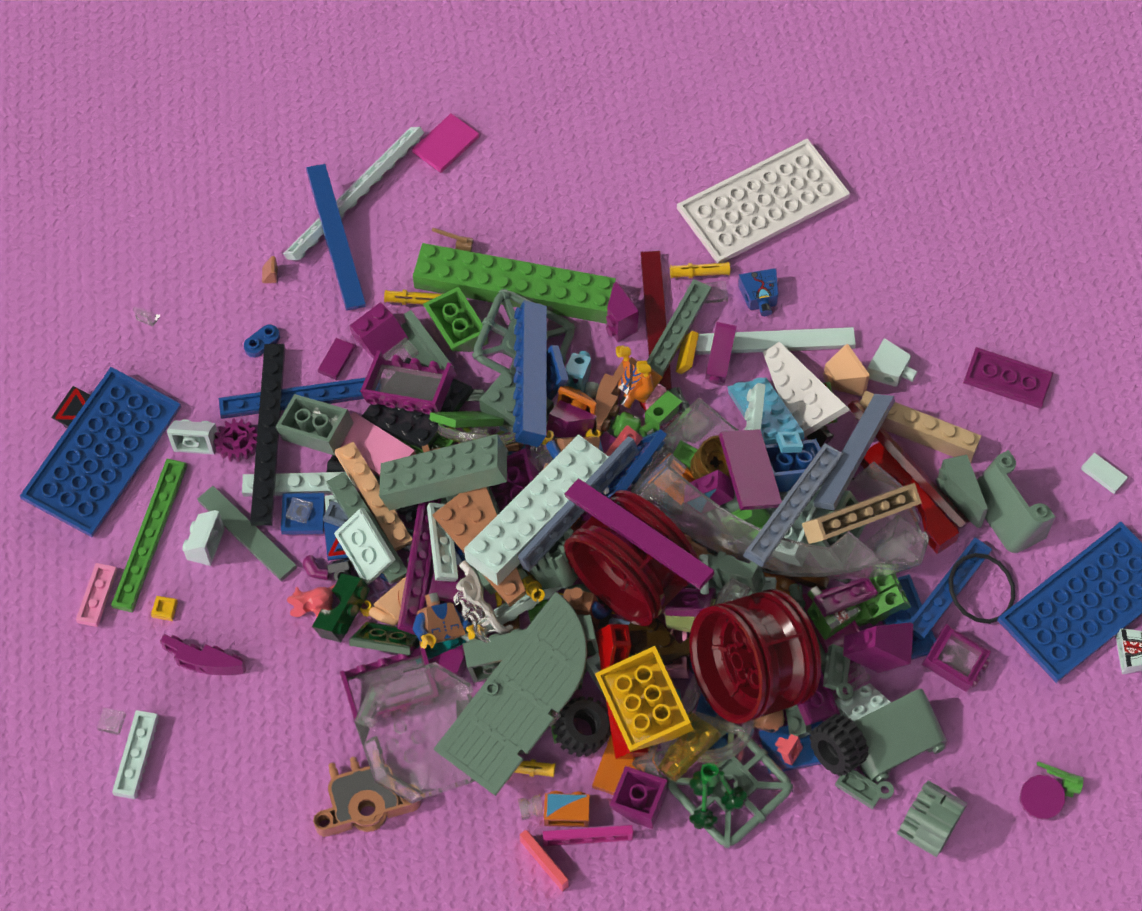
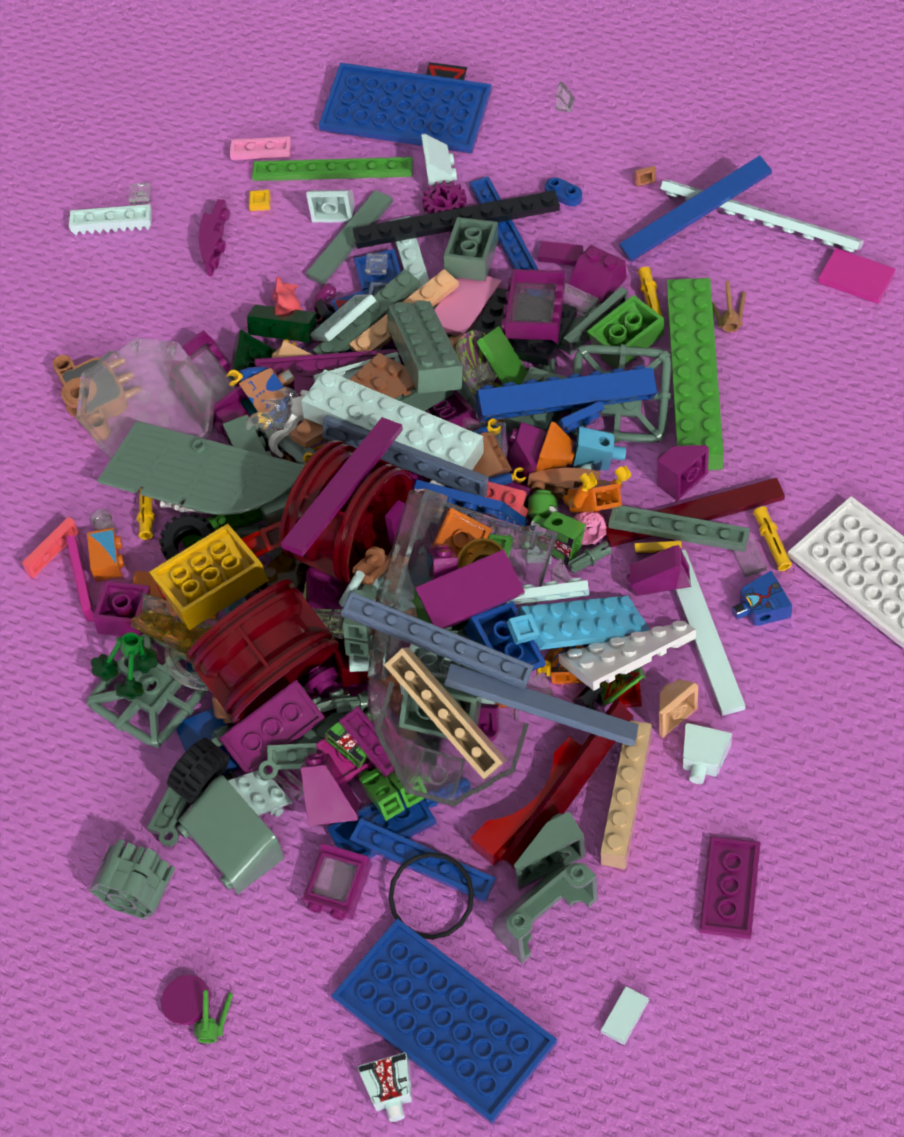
camera: 85 degrees right, 5 degrees down
(789, 748) = (194, 730): coral tile -> none

